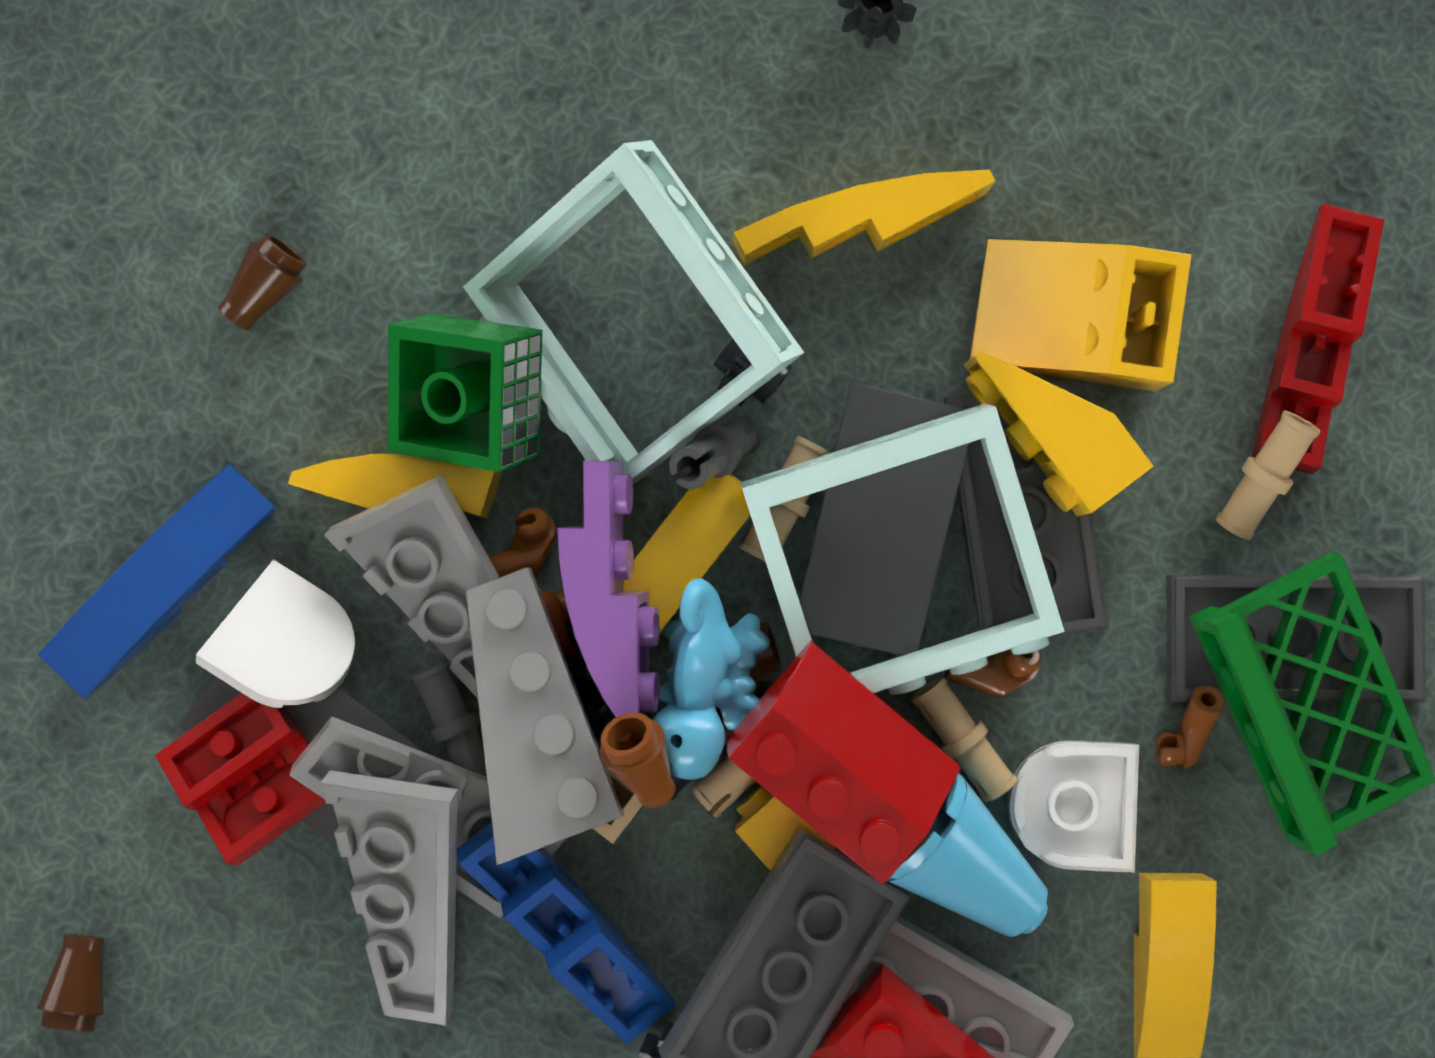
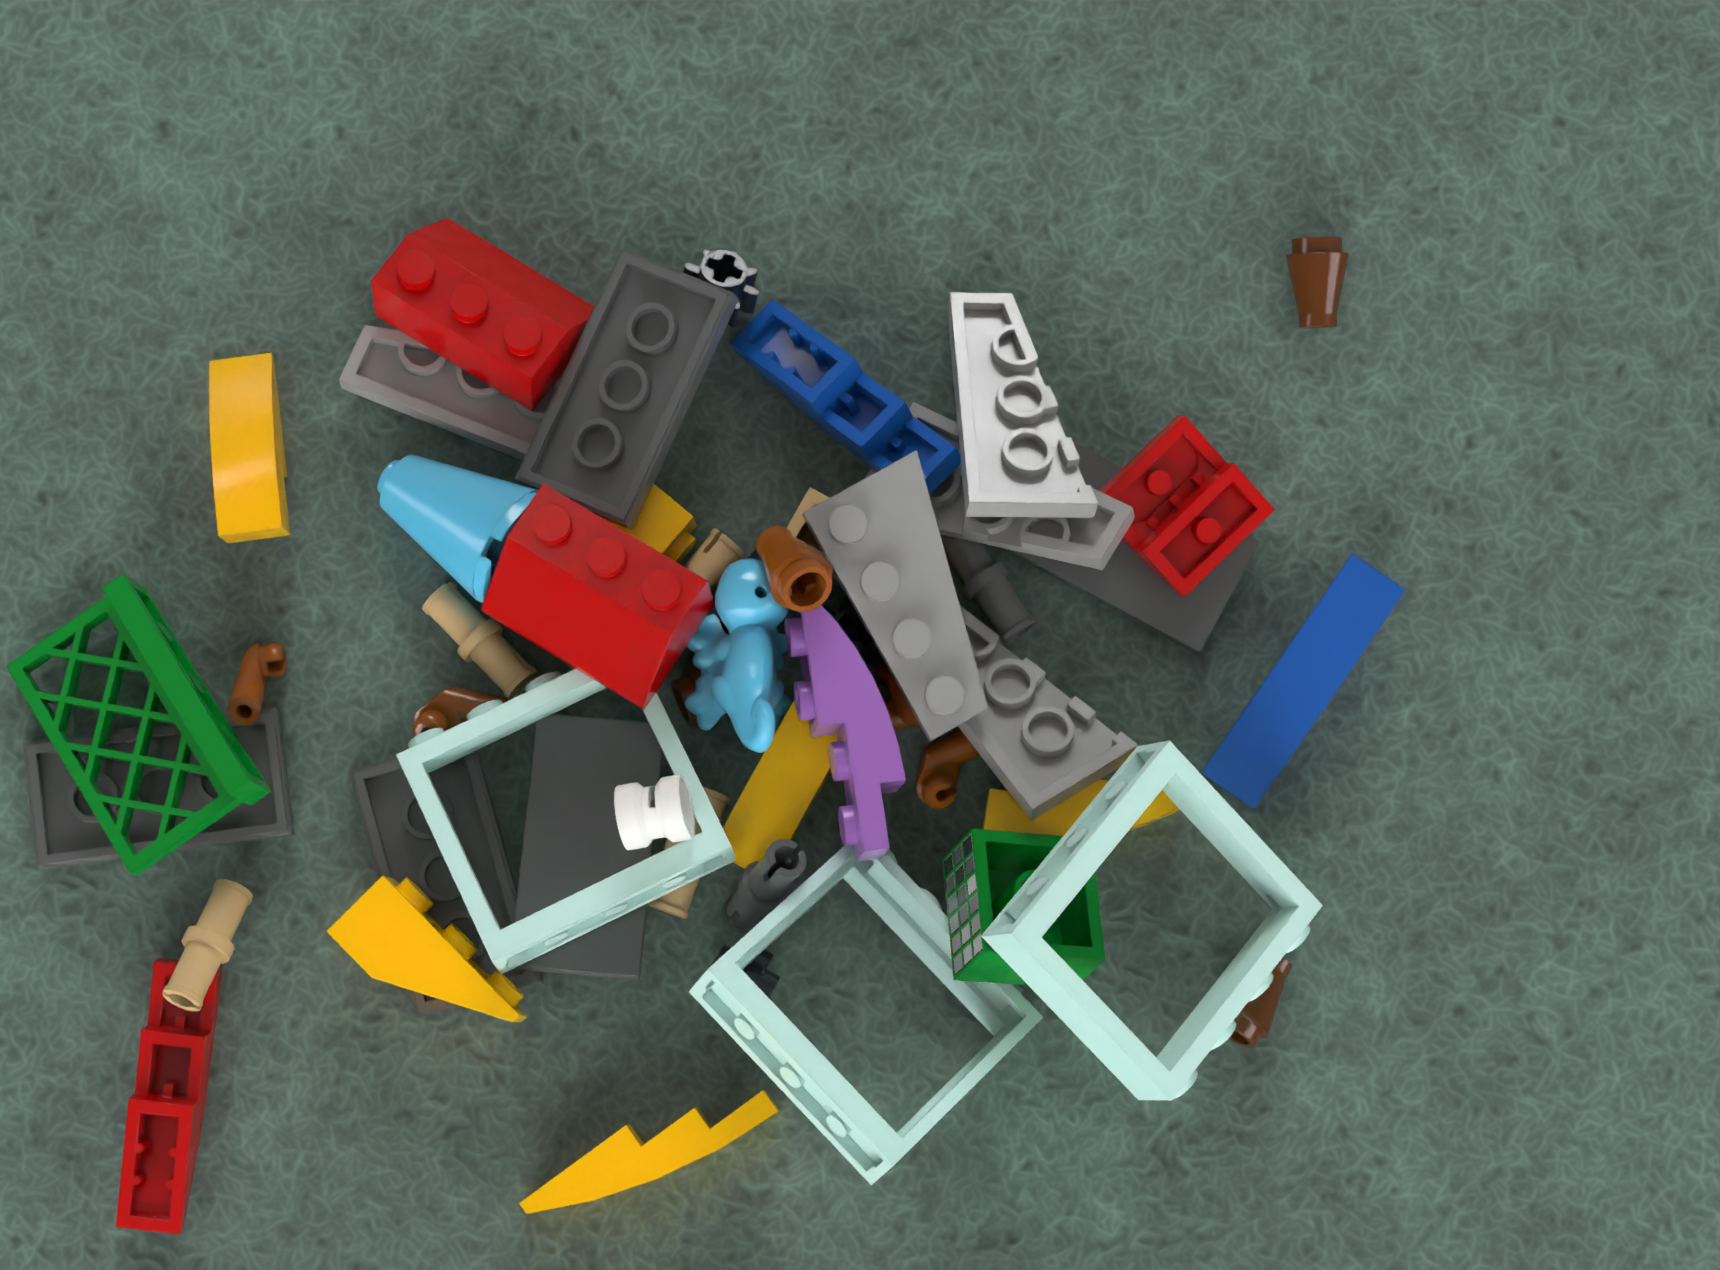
camera: 175 degrees right, 5 degrees down
(282, 642) = (1167, 638): white tile -> none
(397, 418) = (1075, 858): none -> light aqua window
(814, 530) = (654, 812): none -> white wheel
(1078, 805) = (357, 593): white tile -> none
(1083, 310) = (417, 1084): yellow slope -> none

